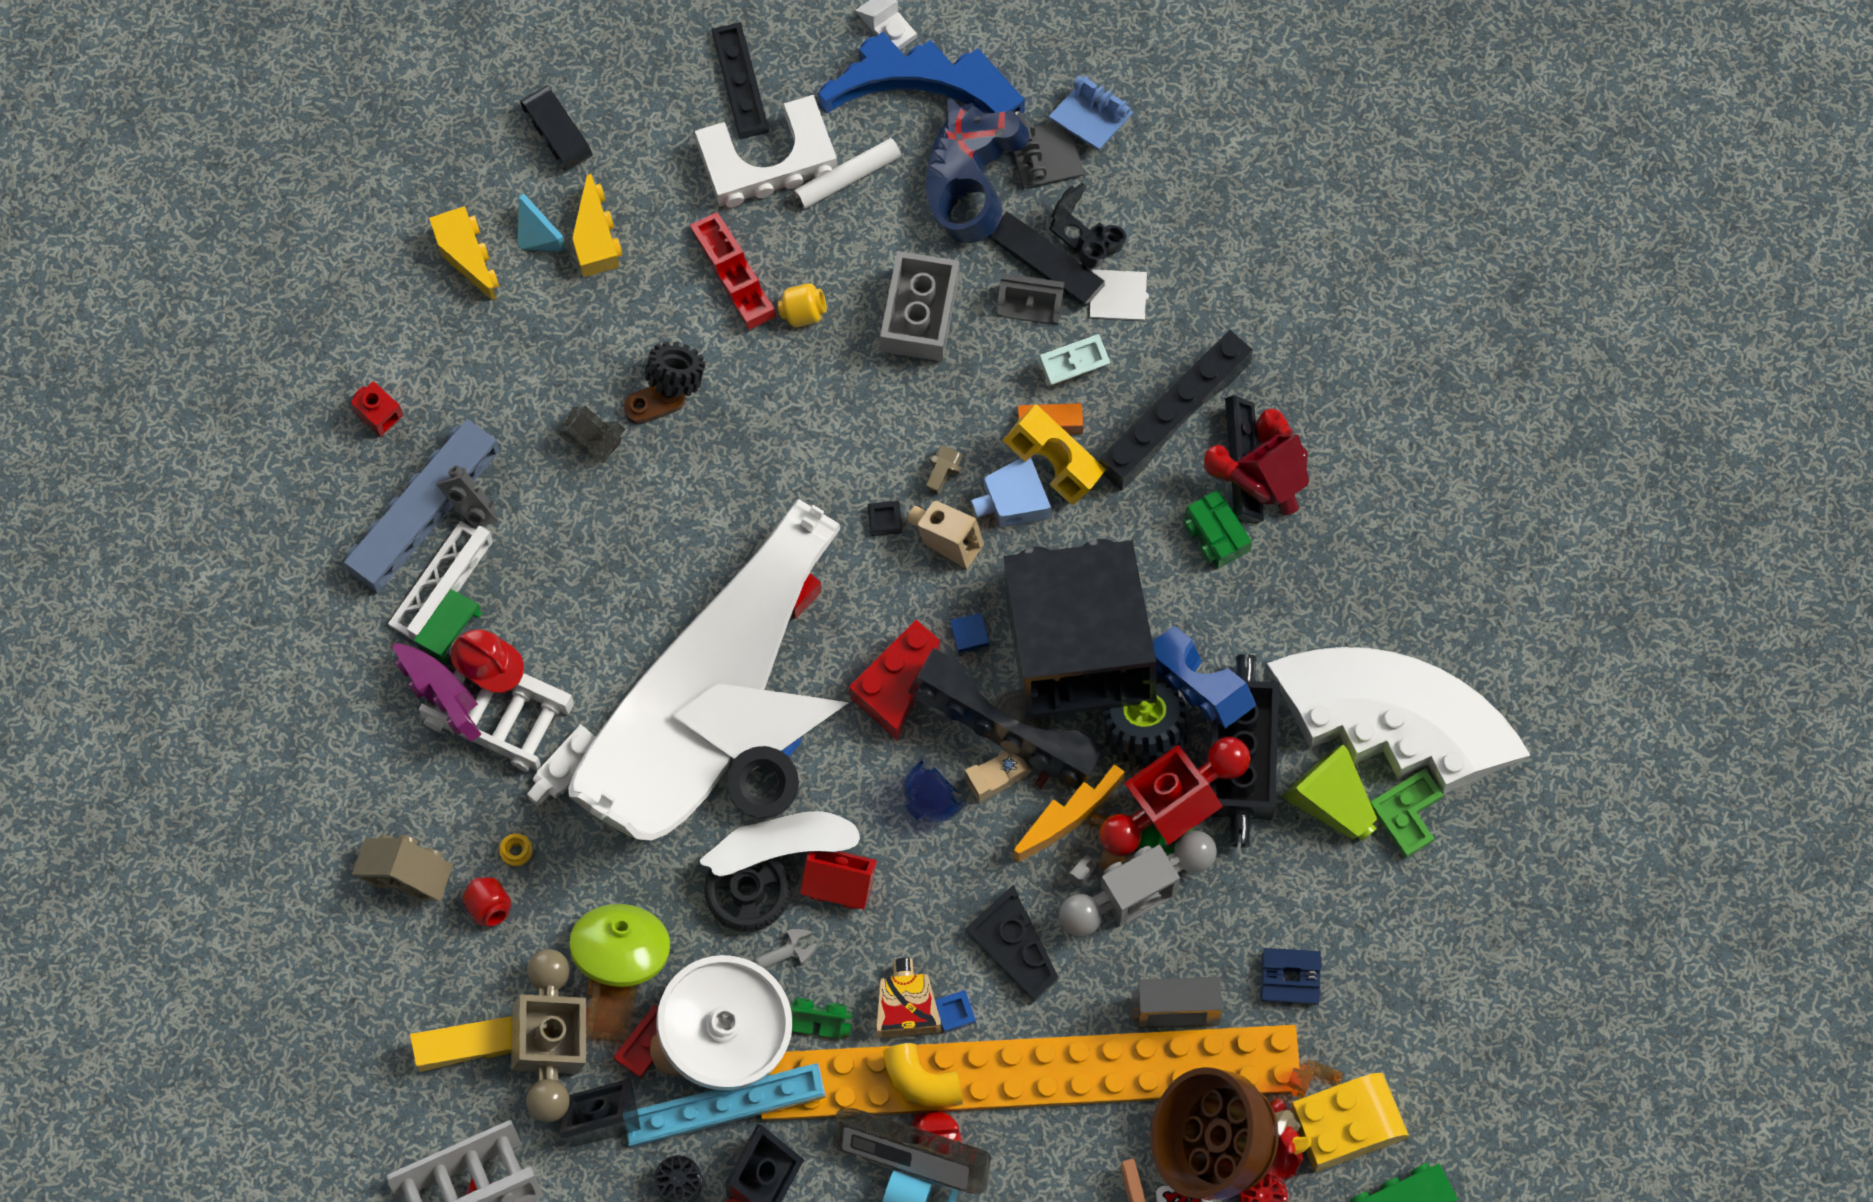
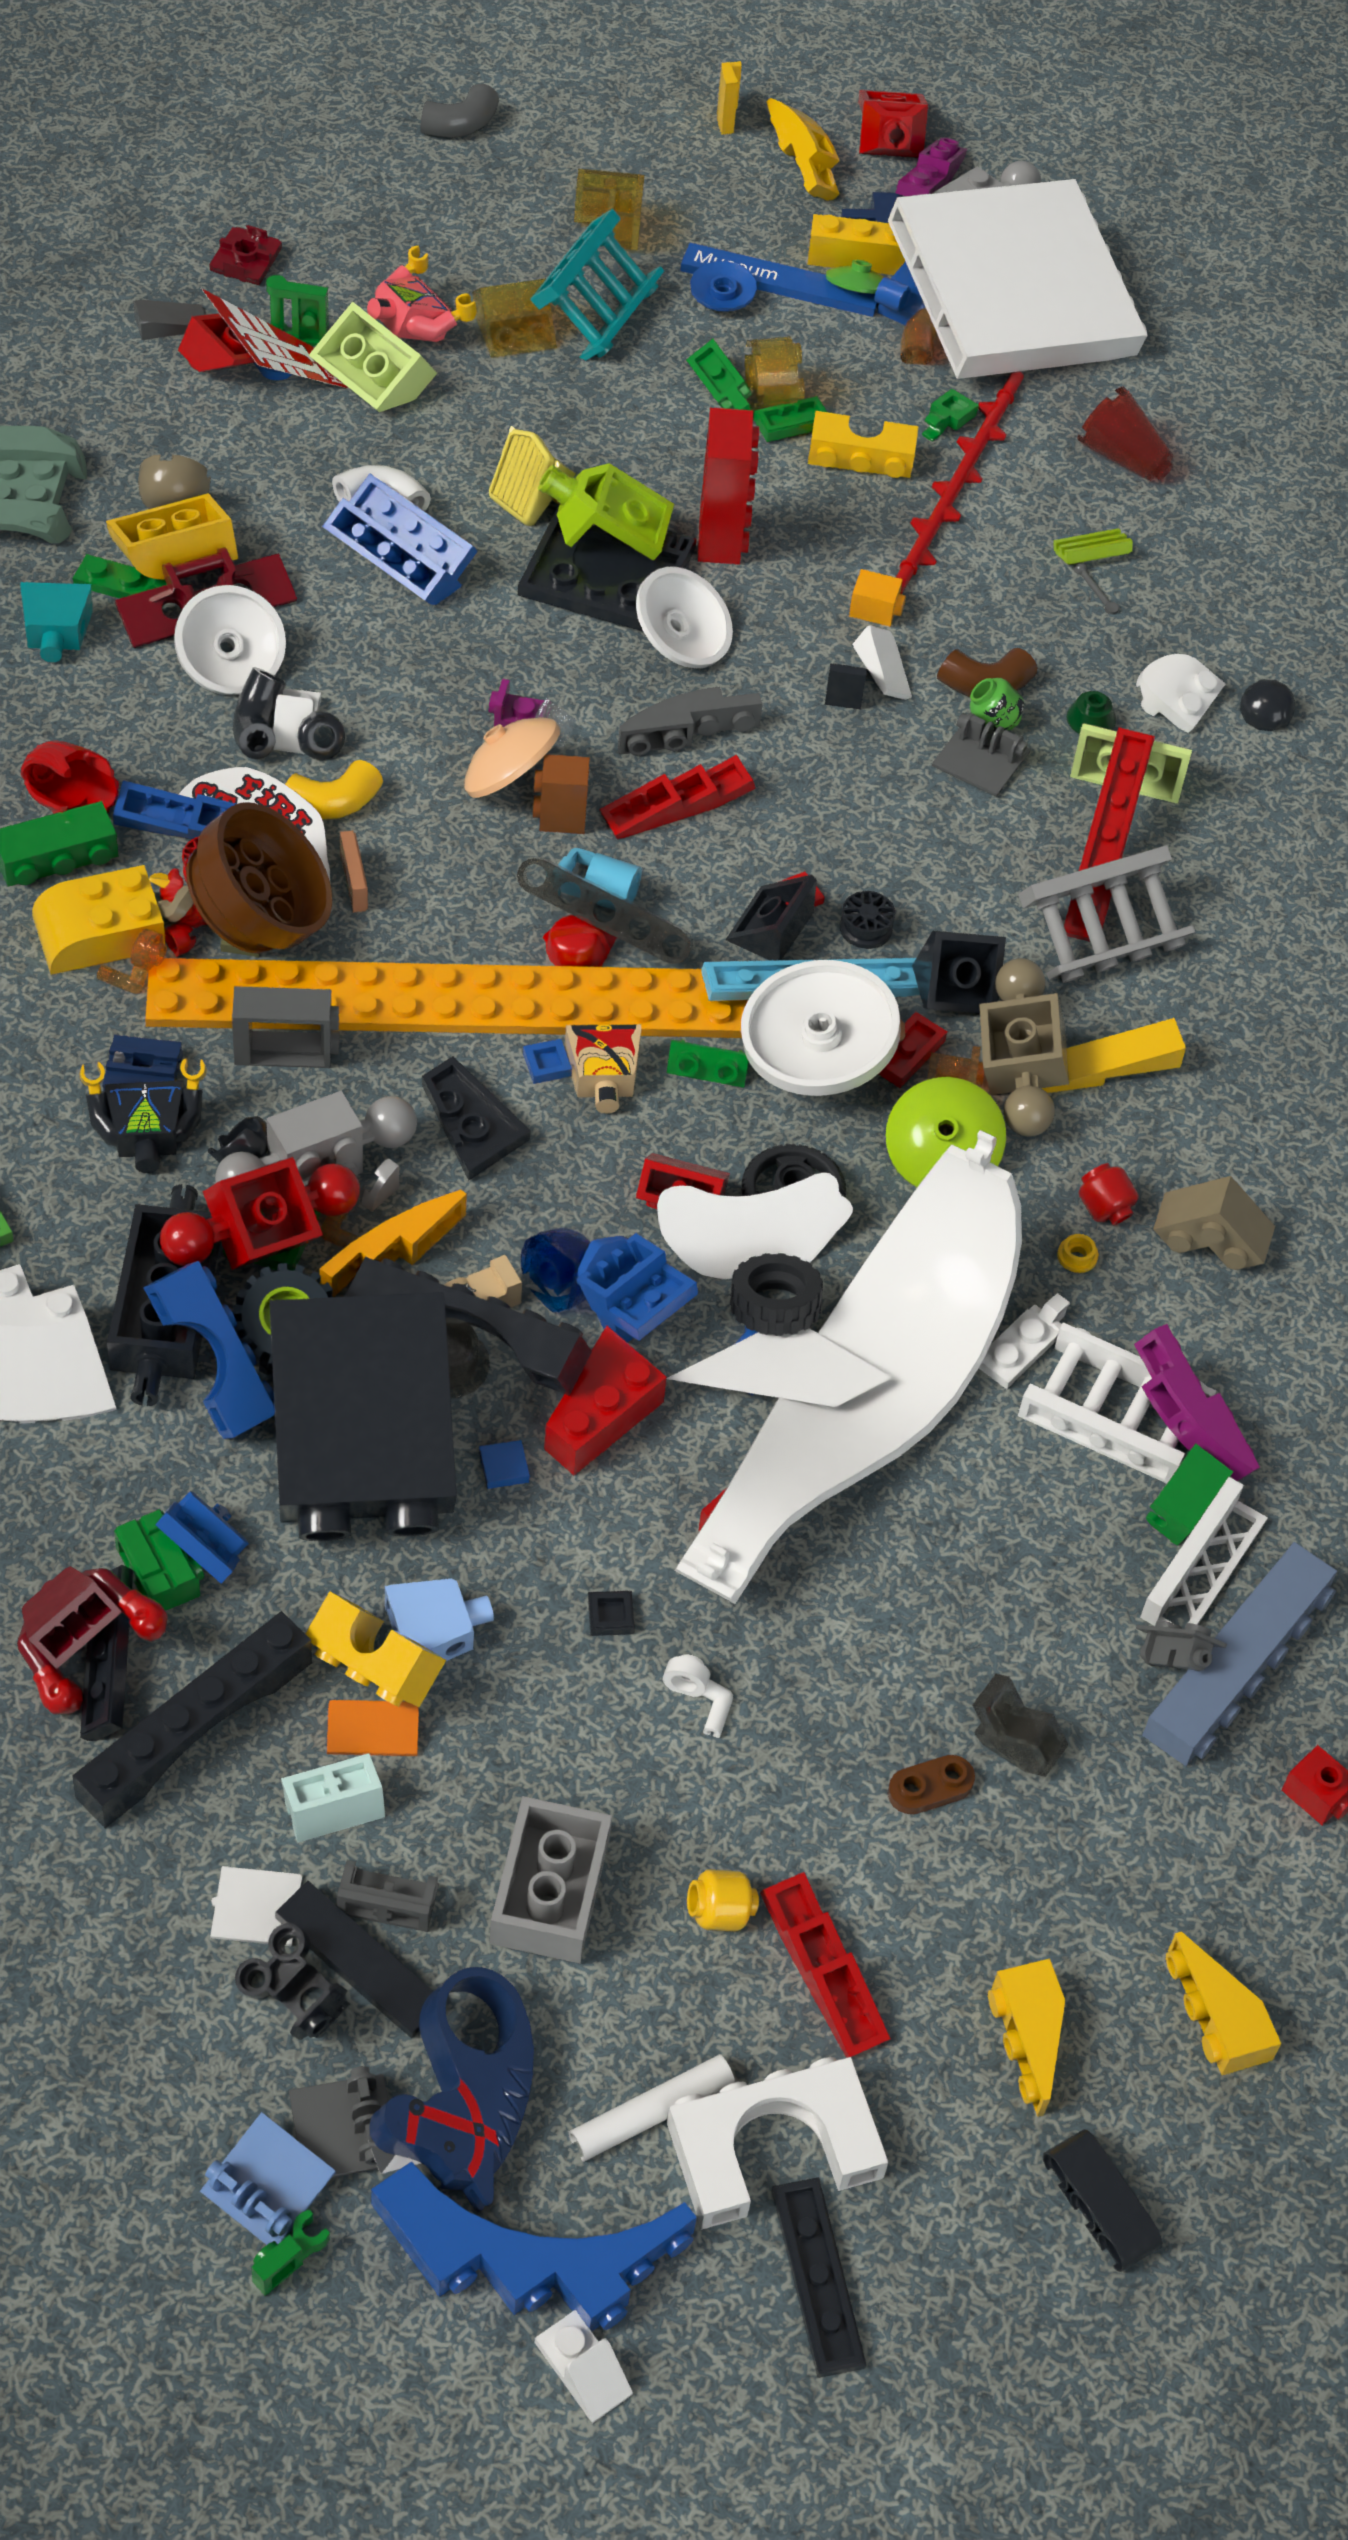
camera: 175 degrees right, 15 degrees down
(487, 660) = (1136, 1437): red piece -> none
(535, 230) = (1117, 2039): medium azure slope -> none
(674, 369) = (878, 1813): black tyre -> none
(788, 950) = (741, 1134): light grey bar -> none
(827, 465) = (691, 1677): none -> white plate
(877, 758) = (632, 1285): none -> blue piece
(916, 1083) = (594, 966): yellow cylinder -> none
(945, 462) = (527, 1669): dark tan piece -> none
(945, 530) = (528, 1568): tan torso -> none
(1078, 65) = (280, 2260): none -> green plate
(1187, 547) = (204, 1534): none -> blue slope
(1197, 887) = (246, 1136): none -> black hair
(1282, 918) = (145, 1116): none -> black torso
(1335, 795) = (65, 1237): lime slope -> none

